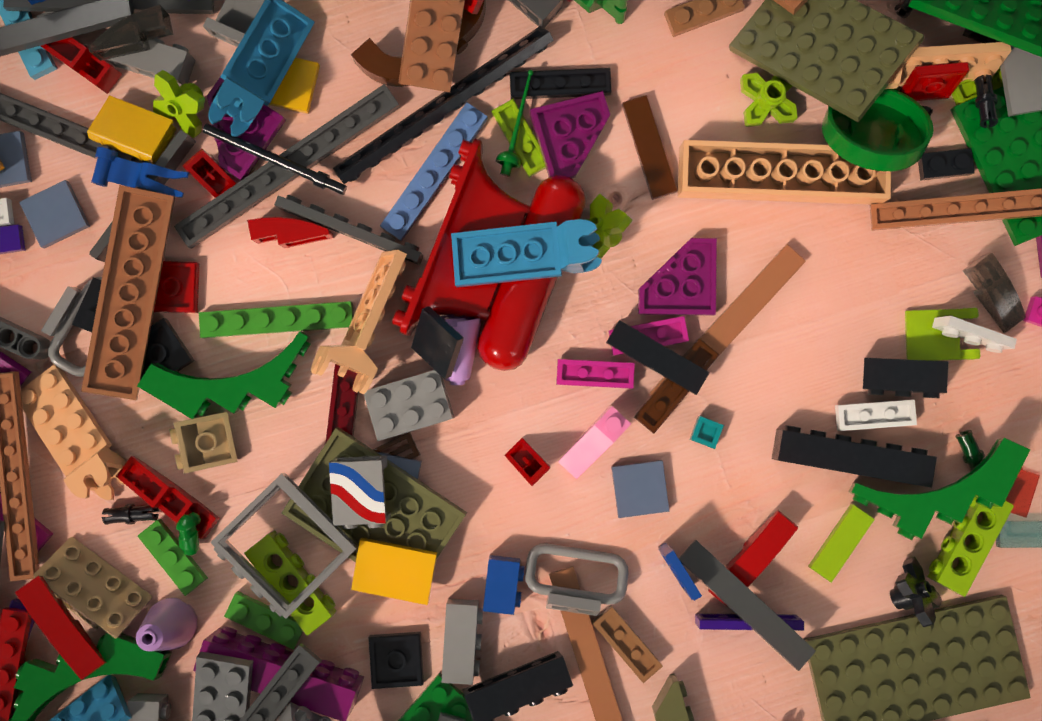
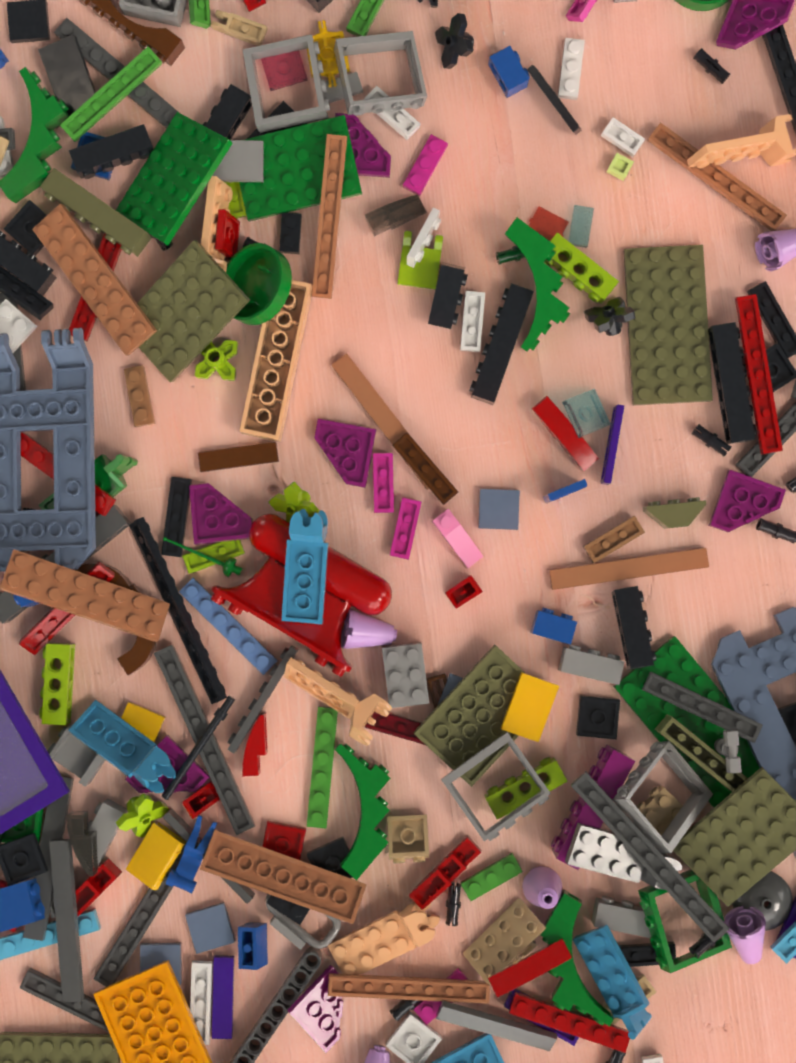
camera: 80 degrees left, 0 degrees up
(37, 269) = (252, 946): none -> blue brick
(188, 533) = (479, 861): green arm -> none
(262, 620) = (551, 813): bright green plate -> none
(358, 491) = (464, 723): panel -> none
(437, 342) = (362, 645): black tile -> none
(573, 599) = (573, 575): light grey bar -> none
(657, 357) = (401, 479): black tile -> none
(706, 432) = (464, 451): teal plate -> none
(747, 605) = (598, 445): dark grey tile -> none
(784, 581) = (586, 413): none -> clear light blue tile
(841, 542) = (564, 364): lime tile -> none
(986, 101) = (248, 197): black pin -> none

